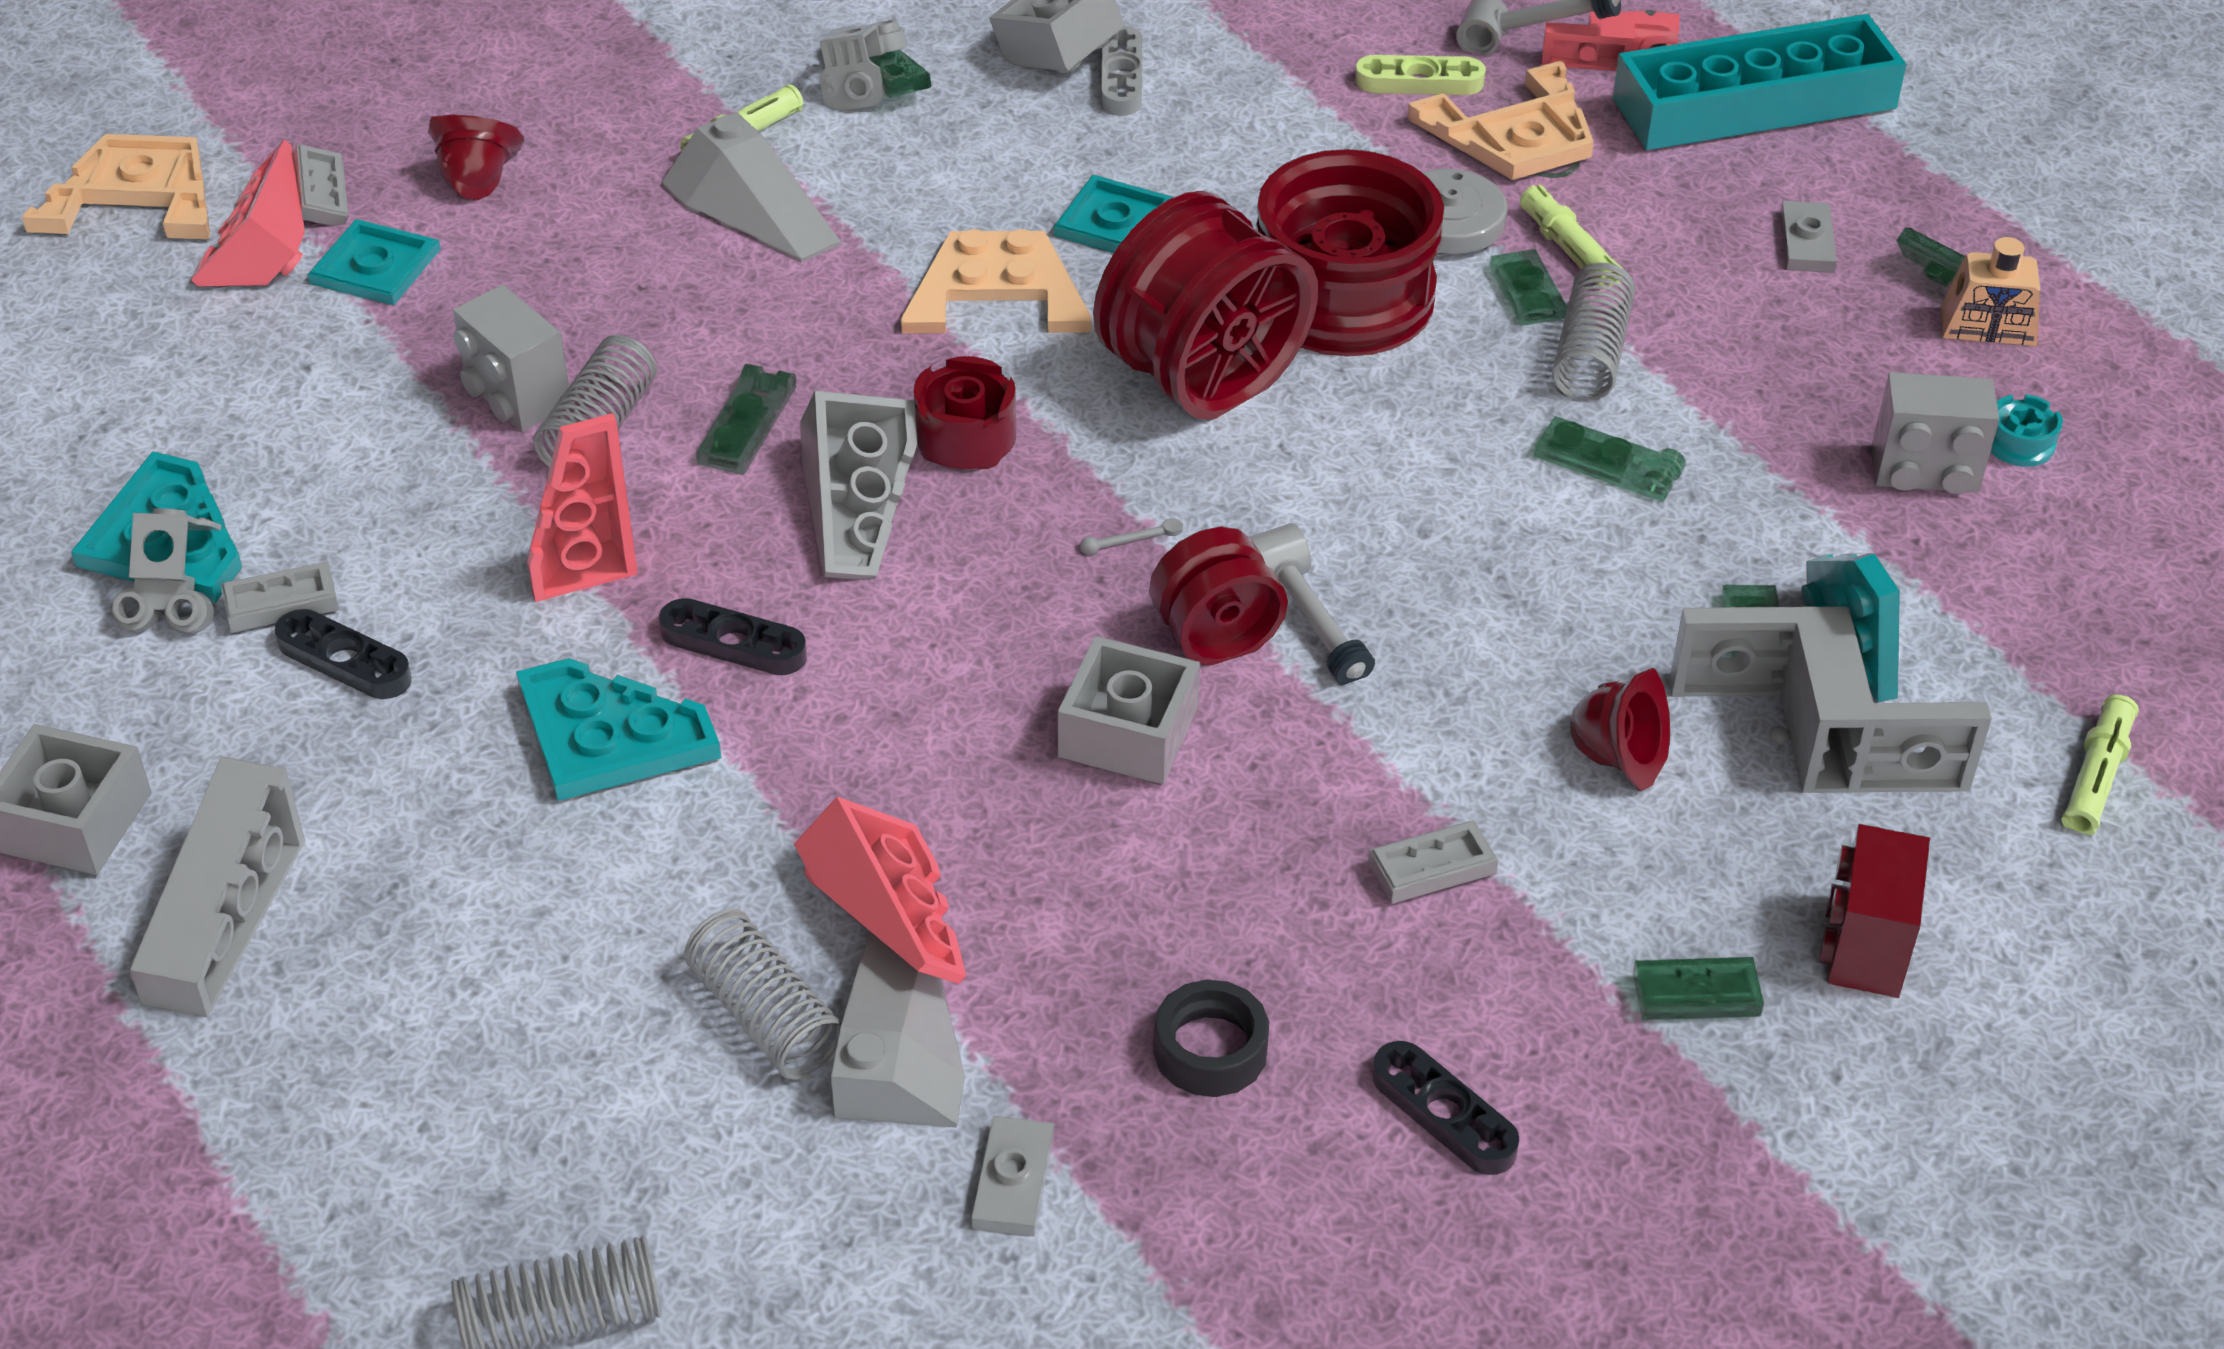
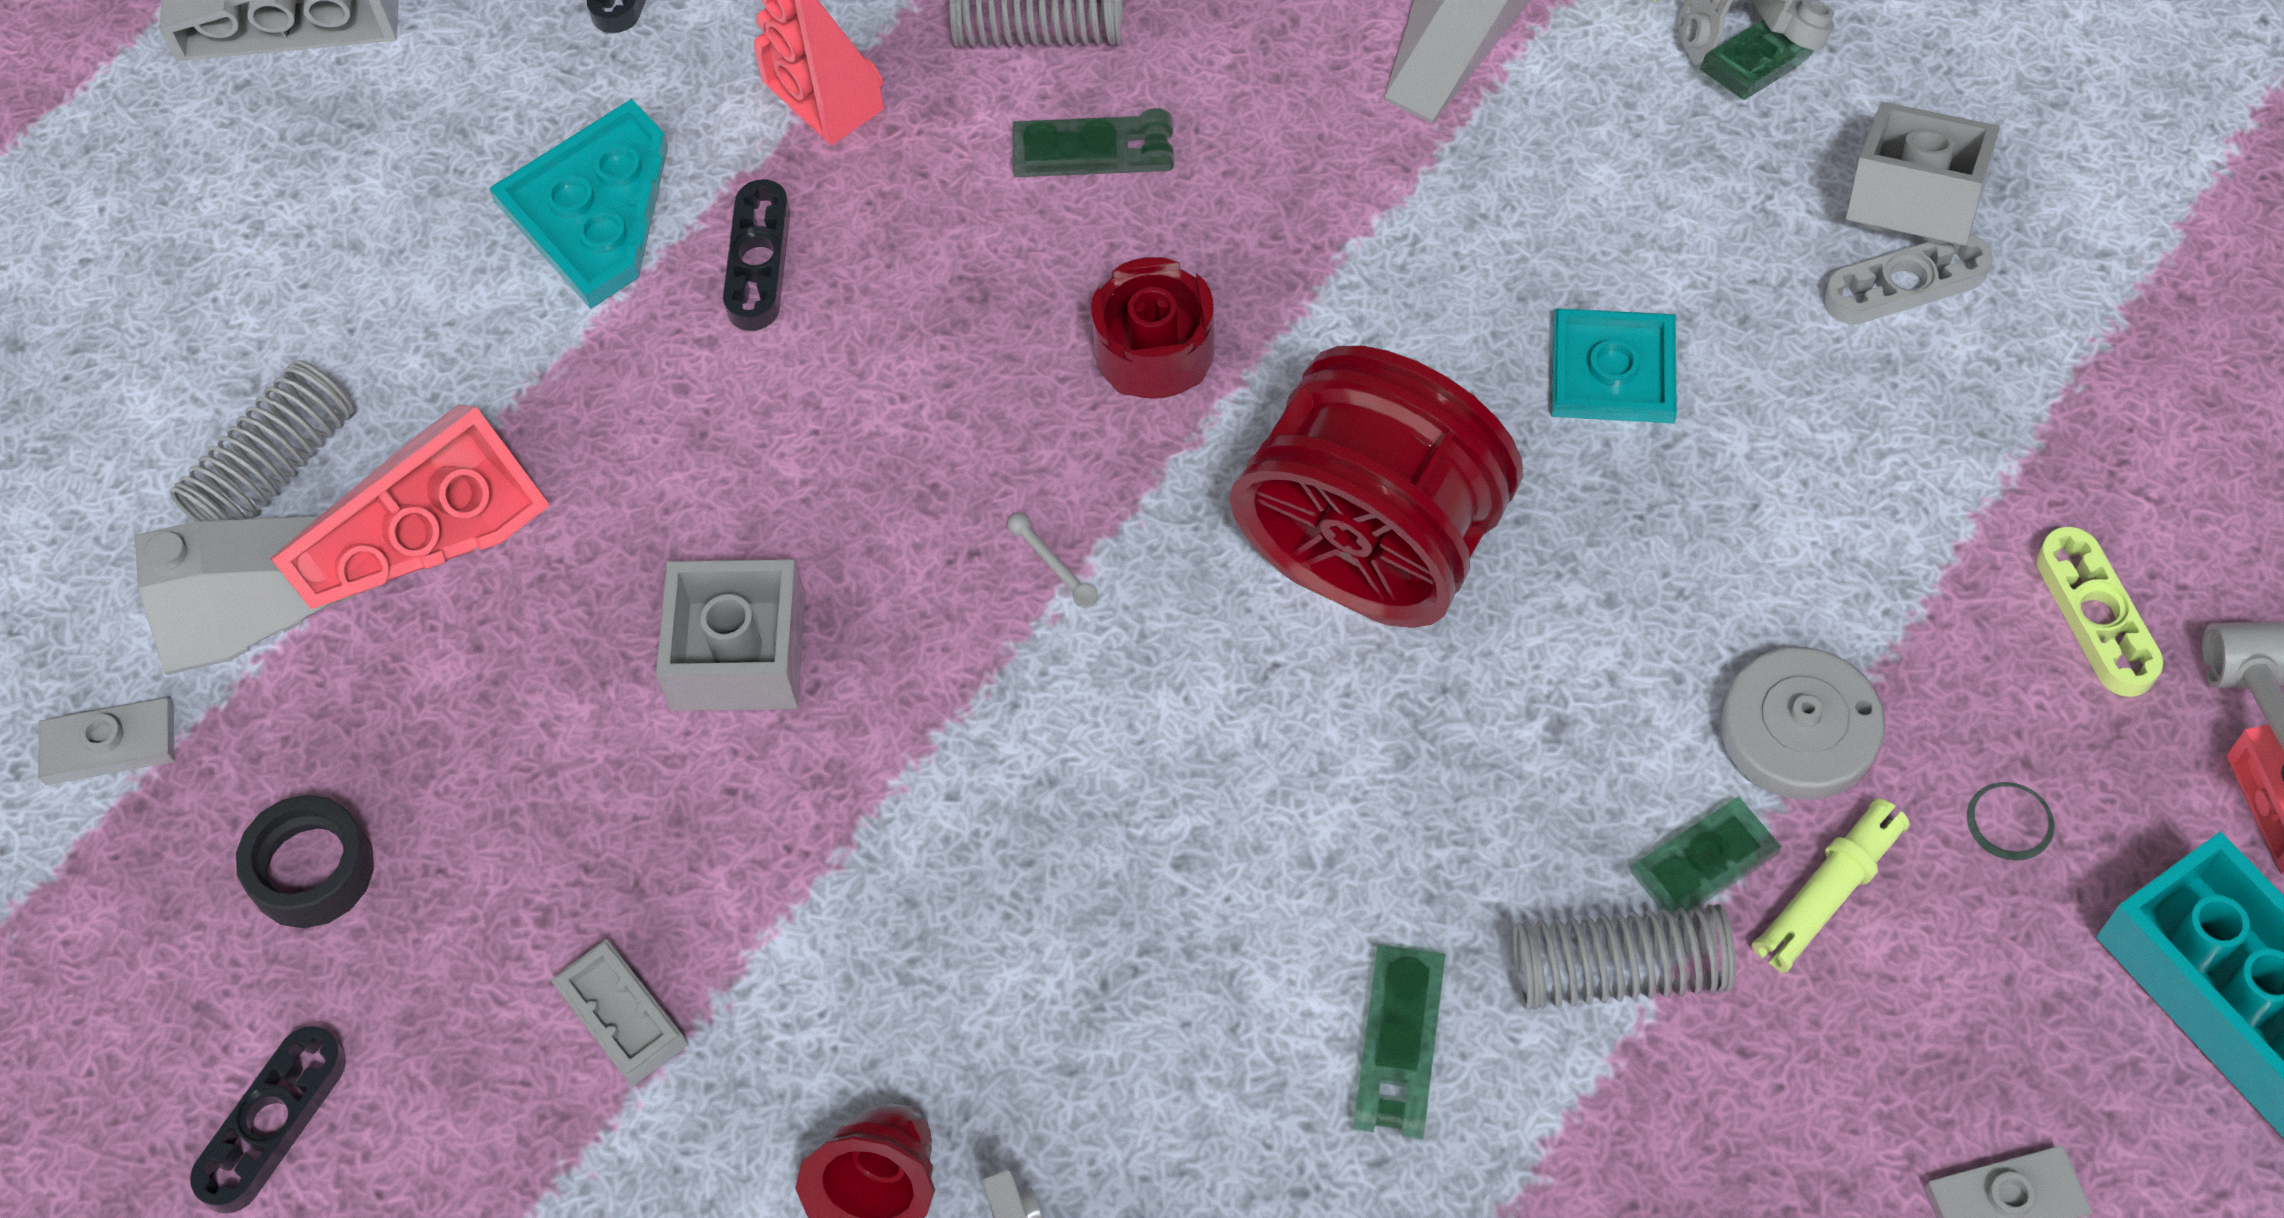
camera: 75 degrees right, 15 degrees up
(855, 475) = (1018, 266): light grey wedge -> none
(996, 268) = (1451, 271): light nougat wing -> none
(1218, 595) = (922, 663): dark red wheel -> none
(1289, 558) = (1045, 713): light grey piece -> none
(1368, 235) = (1593, 661): dark red wheel -> none
(1516, 137) = (2037, 780): light nougat wing -> none

